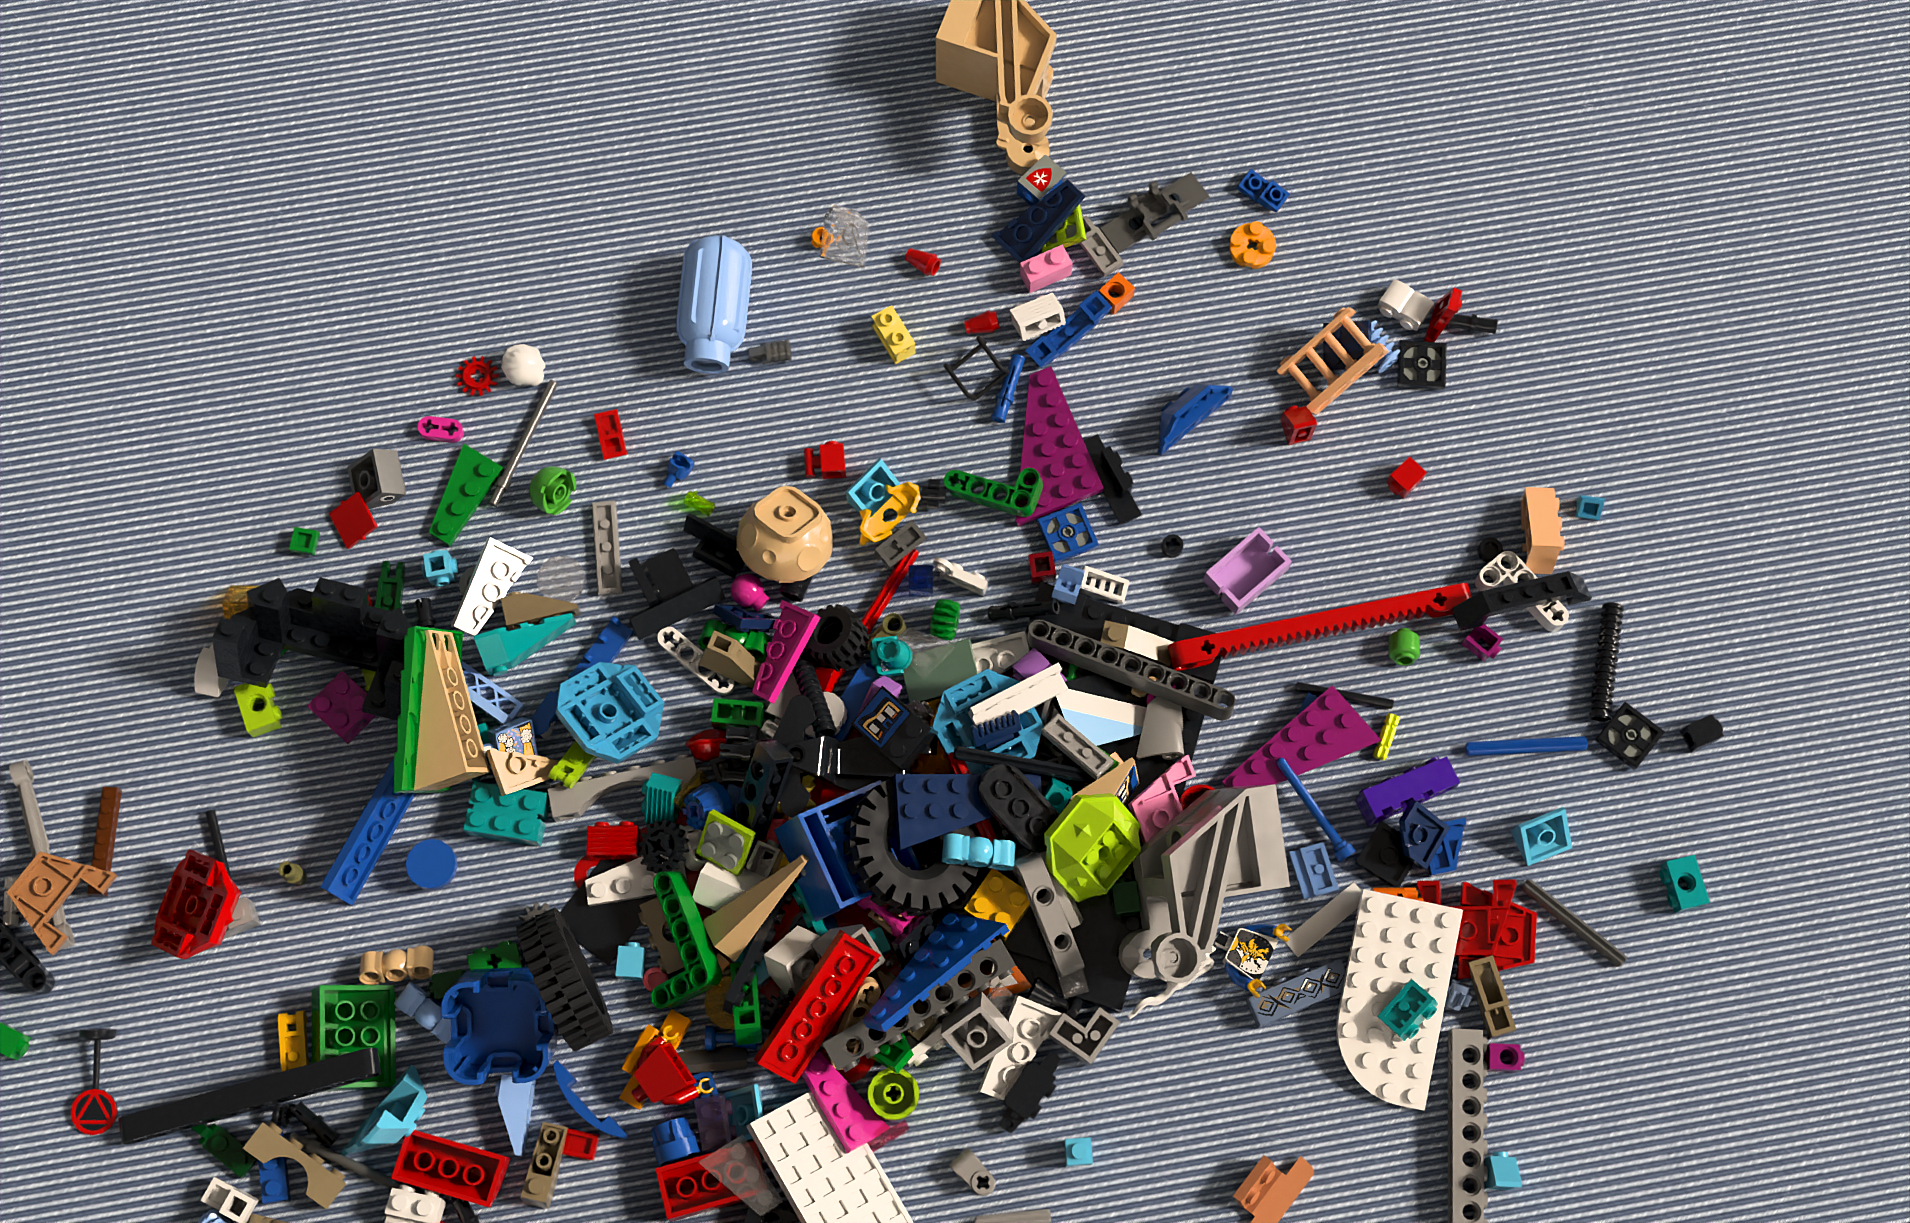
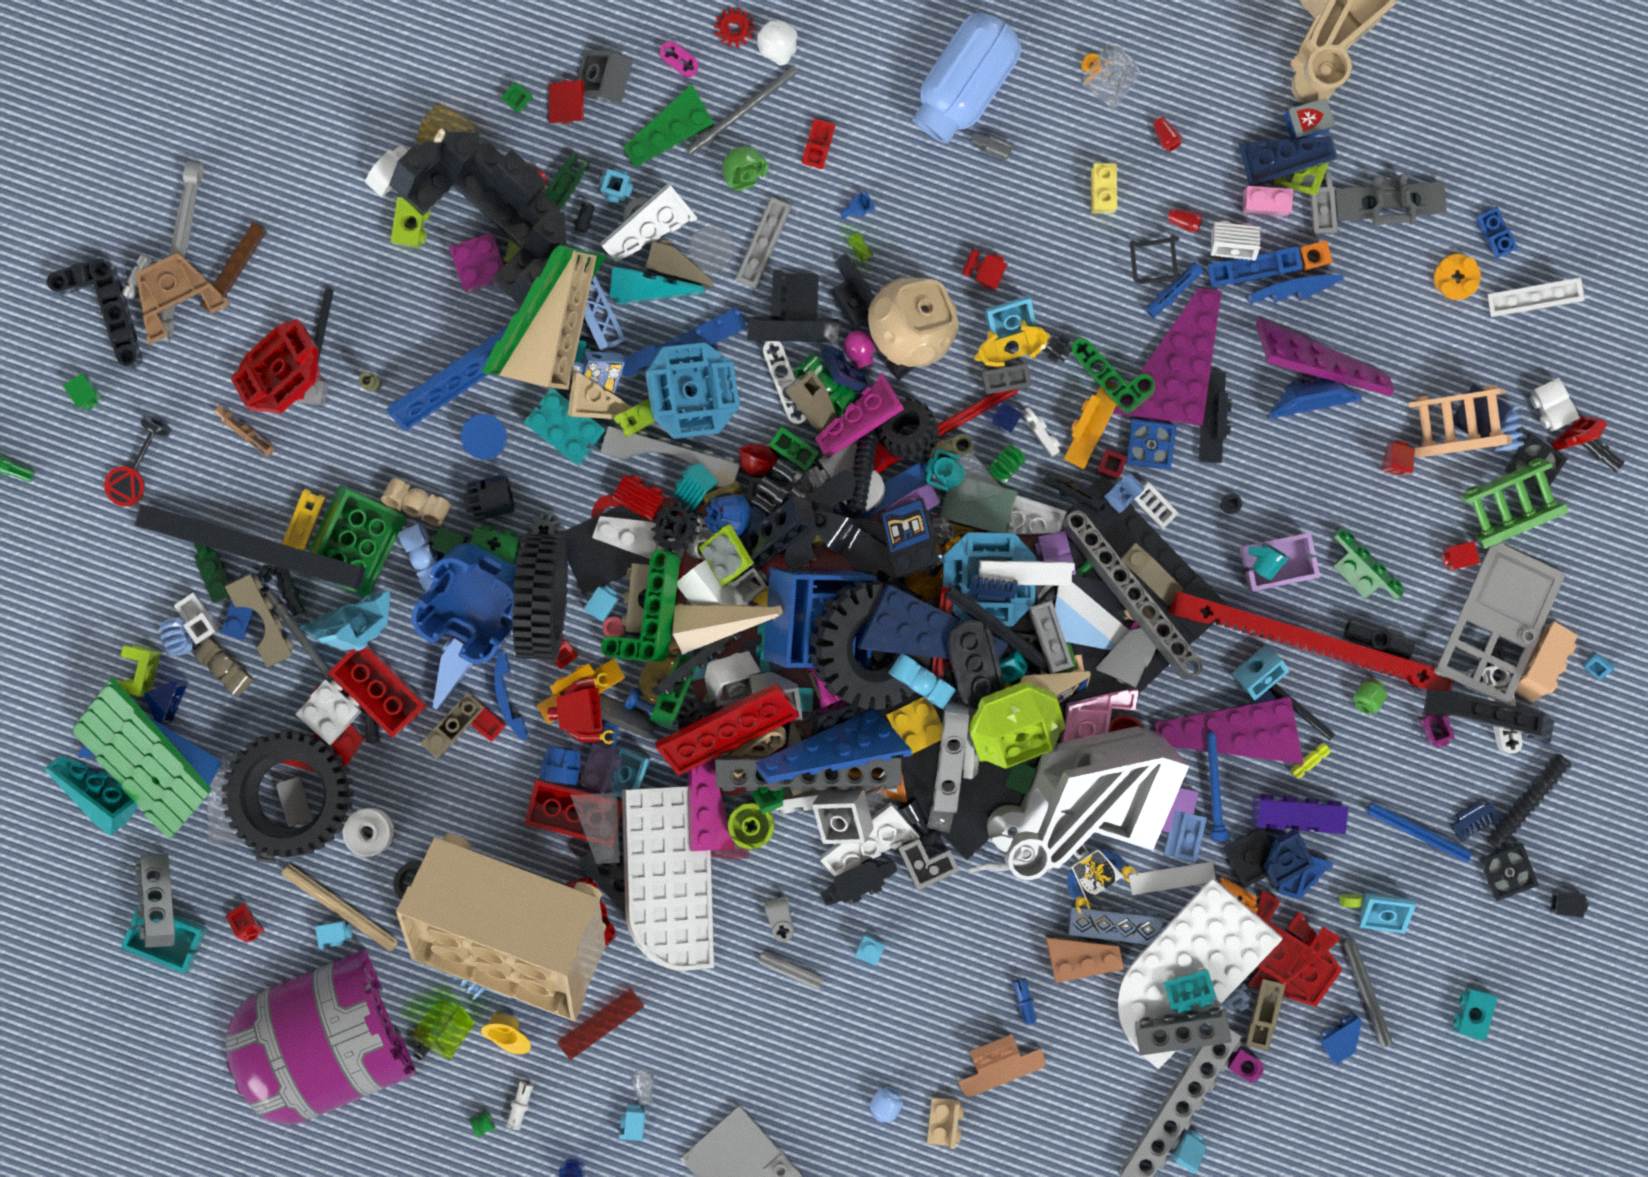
camera: 30 degrees right, 15 degrees up
(191, 991) = (244, 431): none -> medium nougat piece
(466, 920) = (489, 497): none -> black gear
(621, 1035) = (566, 655): none -> red slope
(1003, 548) = (1090, 427): none -> light orange bracket
(1119, 325) = (1302, 287): none -> blue slope
(1168, 376) = (1304, 355): none -> magenta wing
(1234, 569) = (1268, 560): none -> teal piece
(1257, 1118) = (1024, 1001): none -> blue axle
(1285, 1043) = (1081, 958): none -> nougat wedge
(1290, 679) = (1260, 672): none -> medium azure brick
(1294, 839) = (1184, 802): none -> medium lavender brick
(1325, 539) = (1362, 570): none -> bracket
(1331, 222) = (1536, 297): none -> white piece
(1365, 592) = (1366, 635): none -> black piece
(1439, 1053) = (1173, 1040): none -> dark grey brick
(1446, 410) = (1531, 516): none -> bright green fence
(1479, 491) = (1510, 601): none -> light grey door
(1504, 844) = (1351, 900): none -> lime tile
(1562, 704) = (1471, 815): none -> dark blue piece
(1578, 981) = (1341, 1040): none -> blue slope

